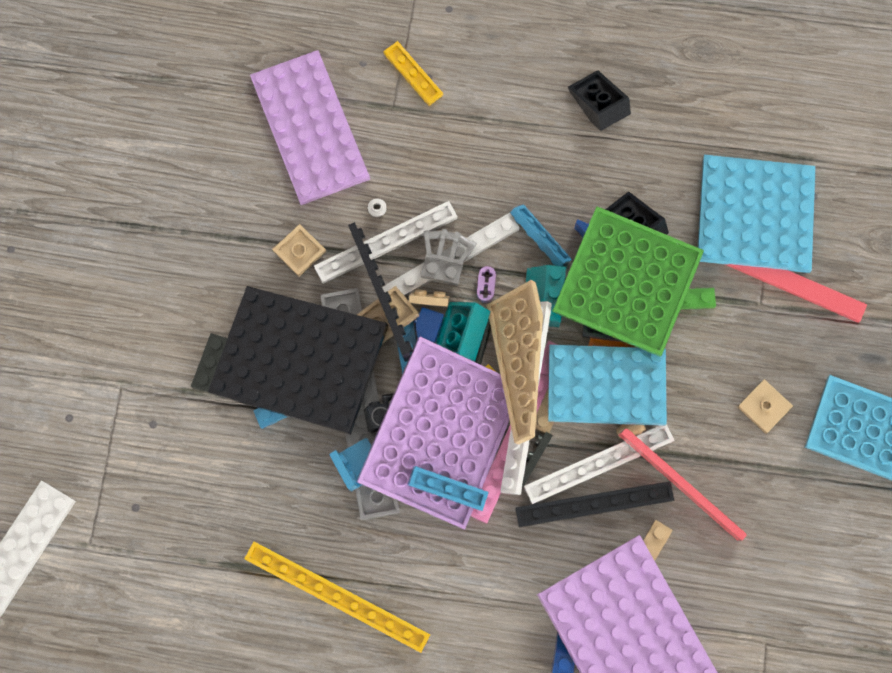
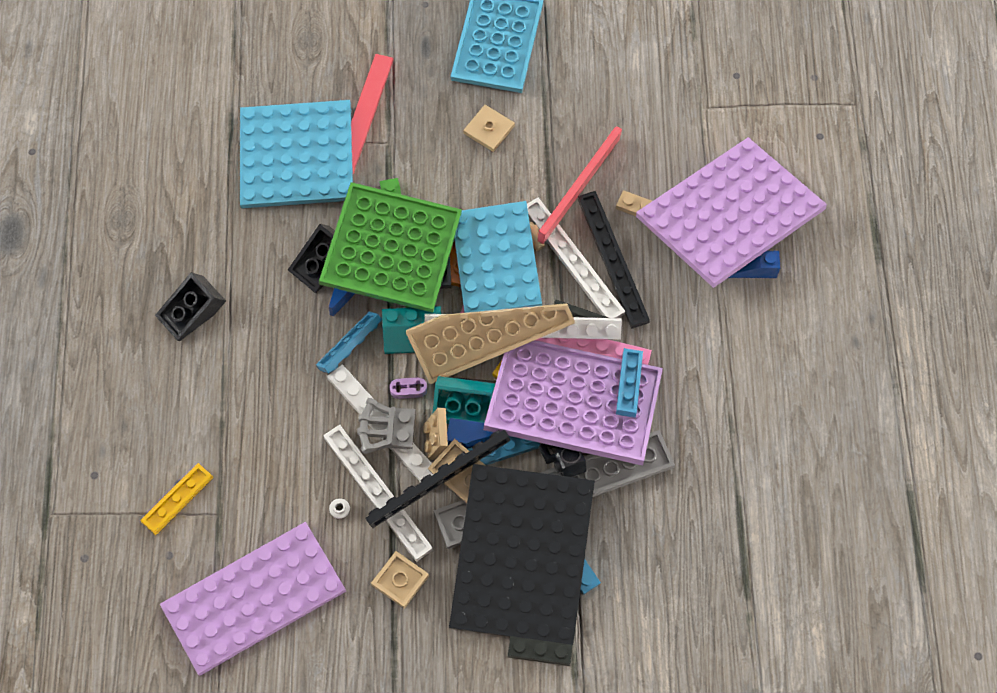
camera: 100 degrees left, 10 degrees down
(337, 597) = (753, 478): yellow plate -> none
(351, 462) = (621, 476): dark azure bracket -> none

